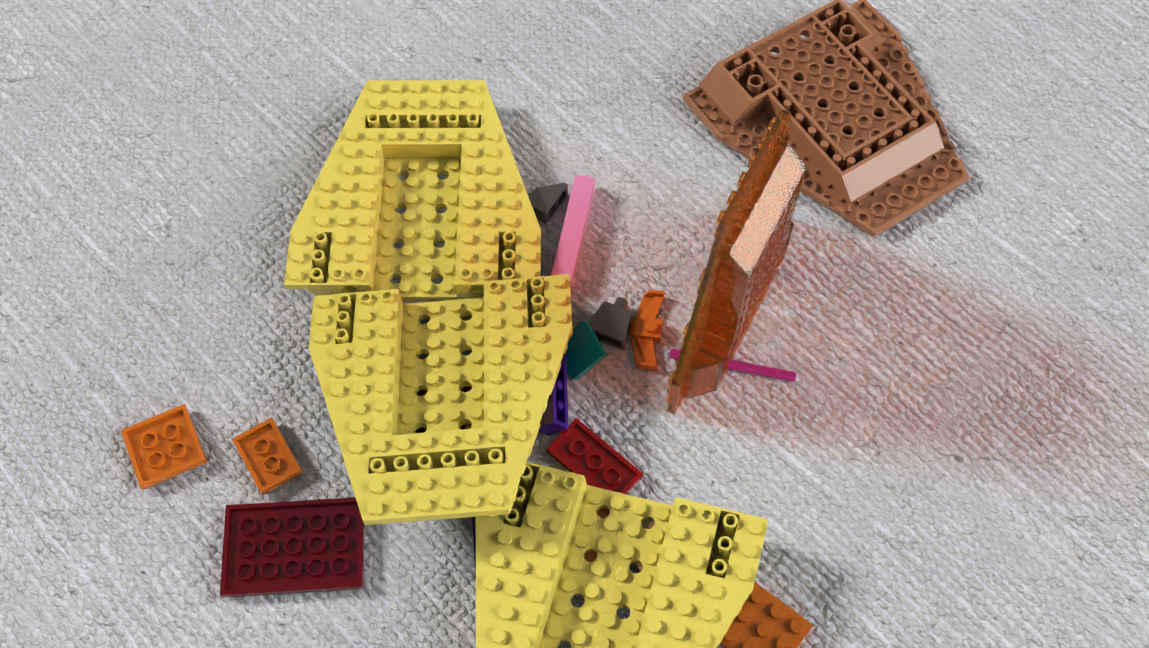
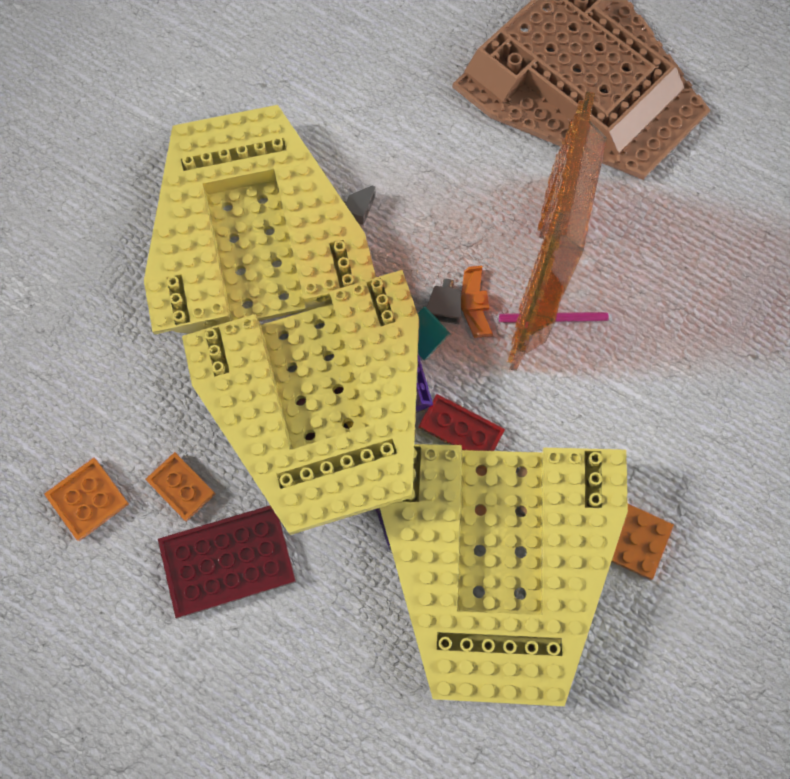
camera: 15 degrees left, 10 degrees up
(574, 227) = (390, 224): bright pink brick -> none

